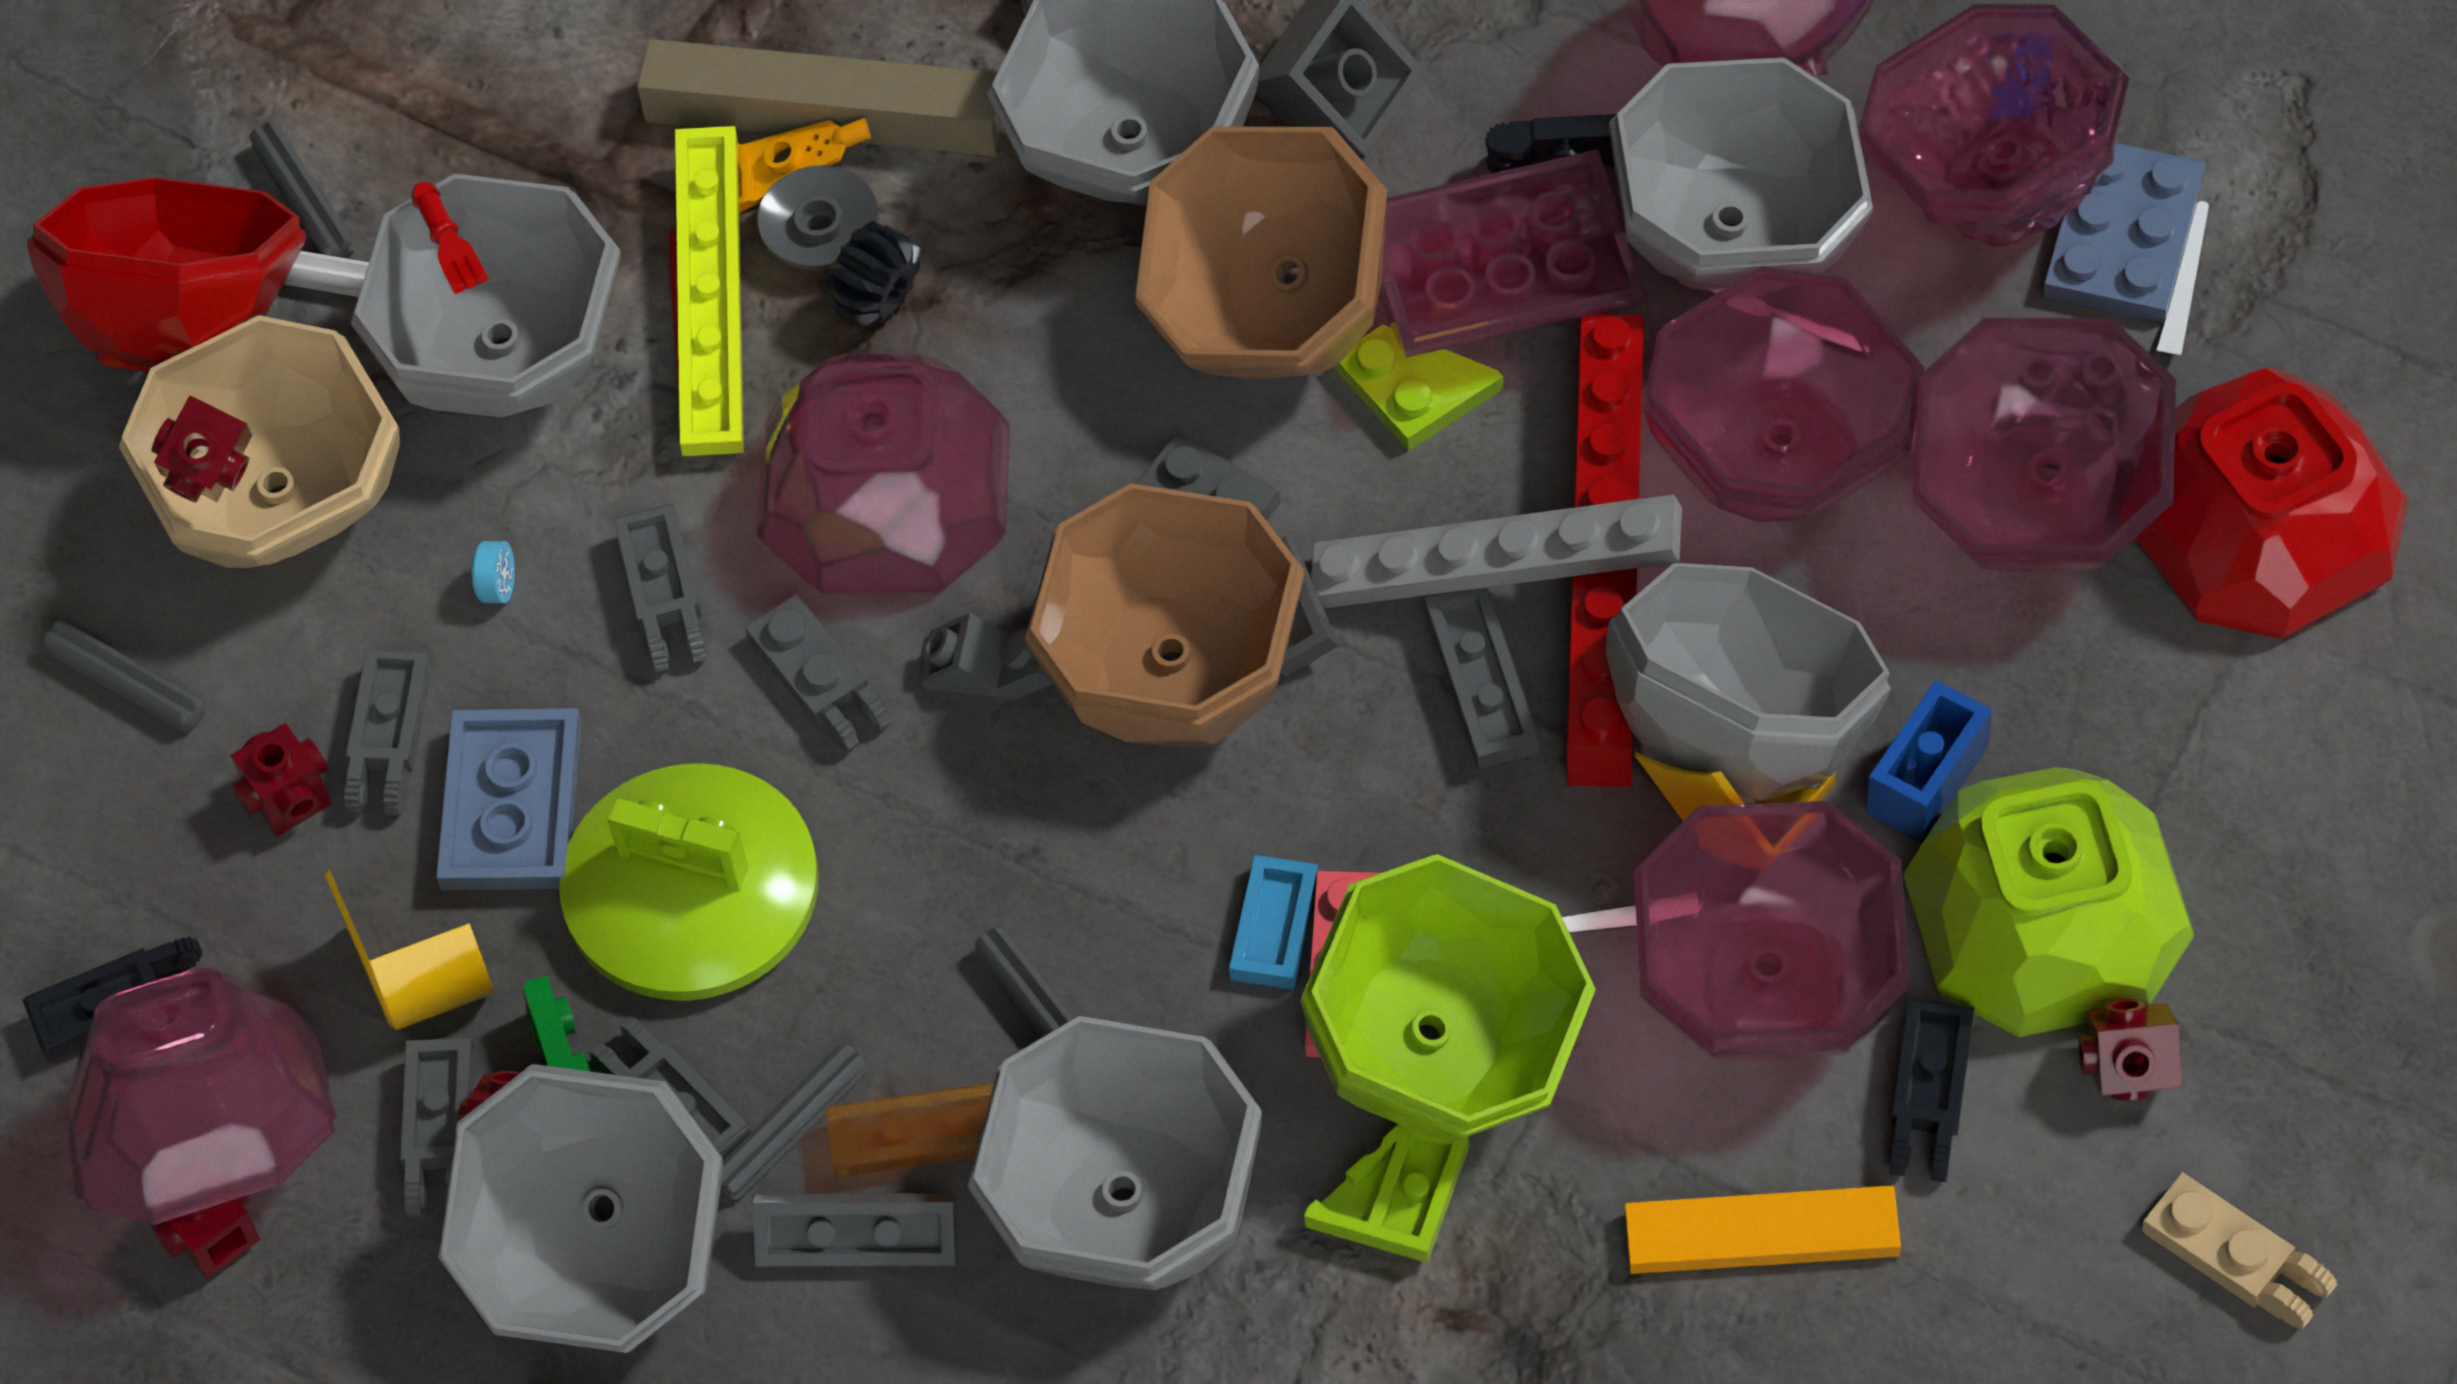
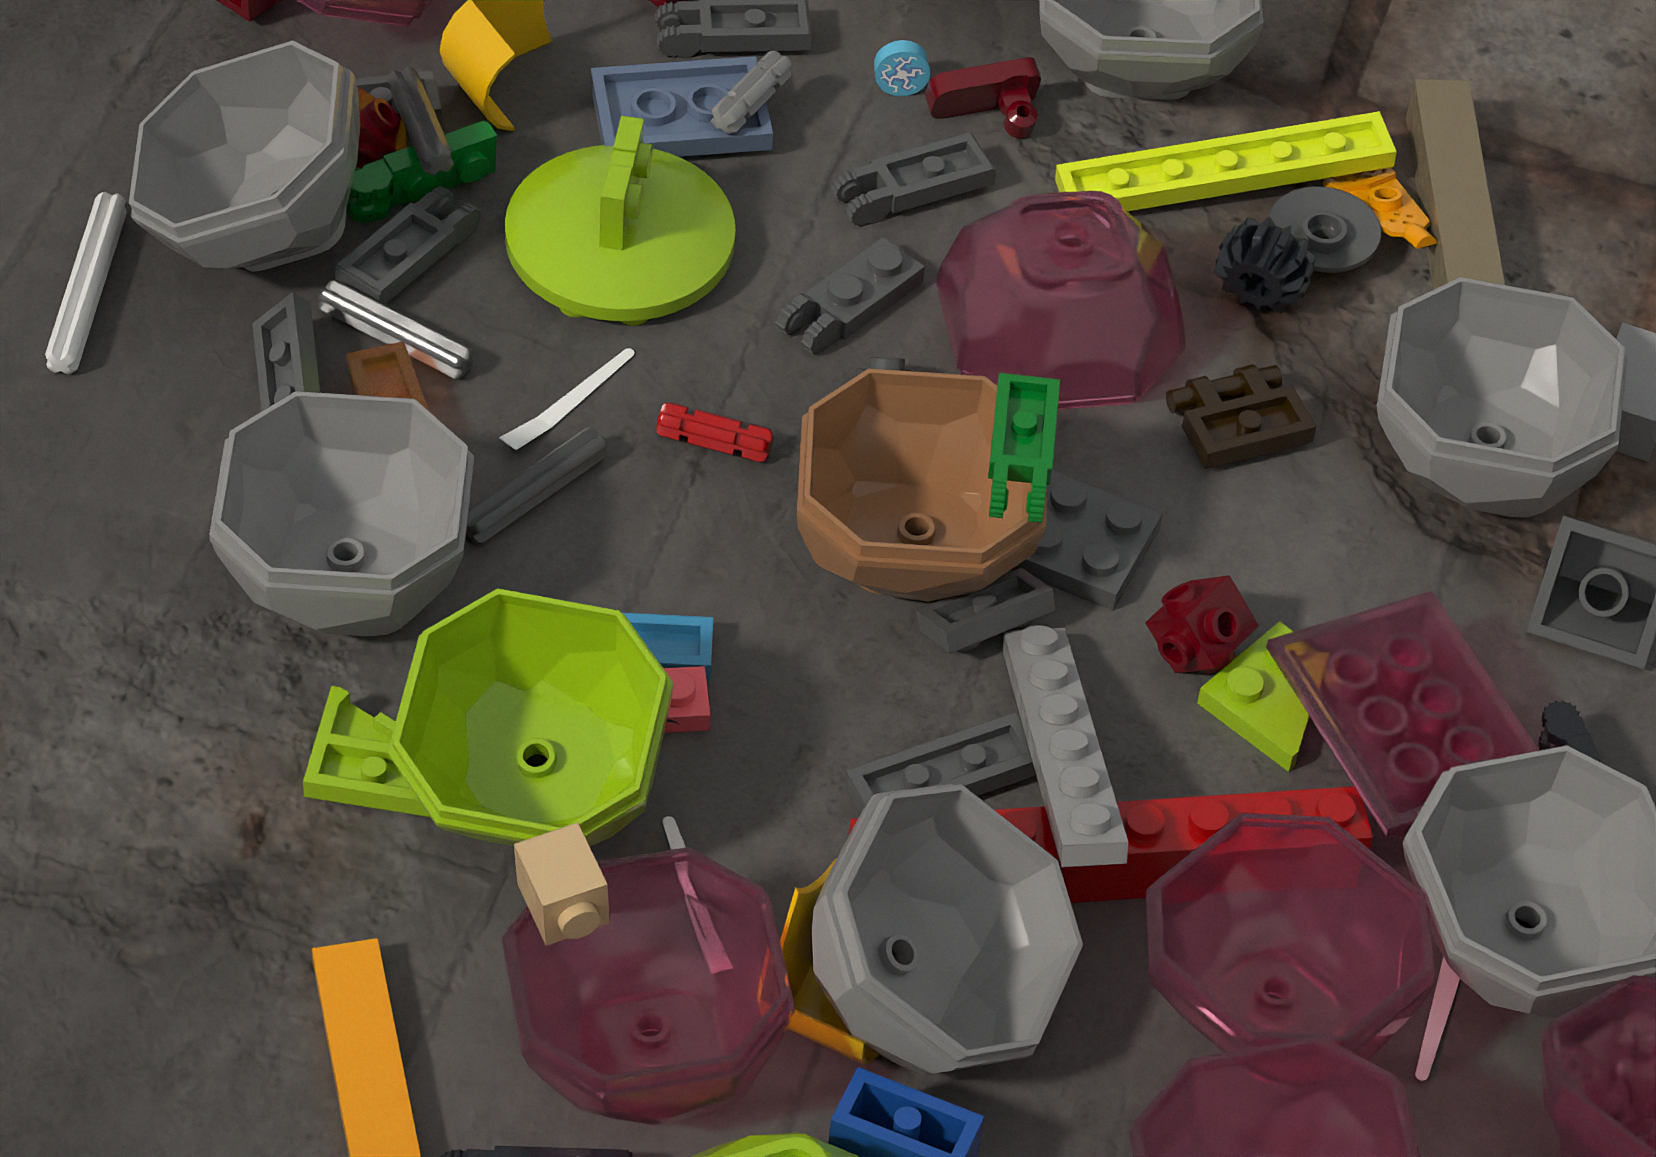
camera: 70 degrees right, 10 degrees down
(518, 1046) = (420, 121): none -> dark grey axle
(523, 715) = (751, 92): none -> light grey axle
(546, 478) = (984, 88): none -> dark red piece
(944, 996) = (551, 416): none -> white sticker
(994, 826) = (714, 432): none -> red axle
(1073, 337) = (1243, 427): none -> dark brown plate
(1176, 497) = (1023, 440): none -> green hinge
(1232, 225) = (1337, 509): medium nougat rock -> none
(1342, 418) = (1201, 624): none -> dark red brick
(1694, 970) = (562, 884): none -> tan brick

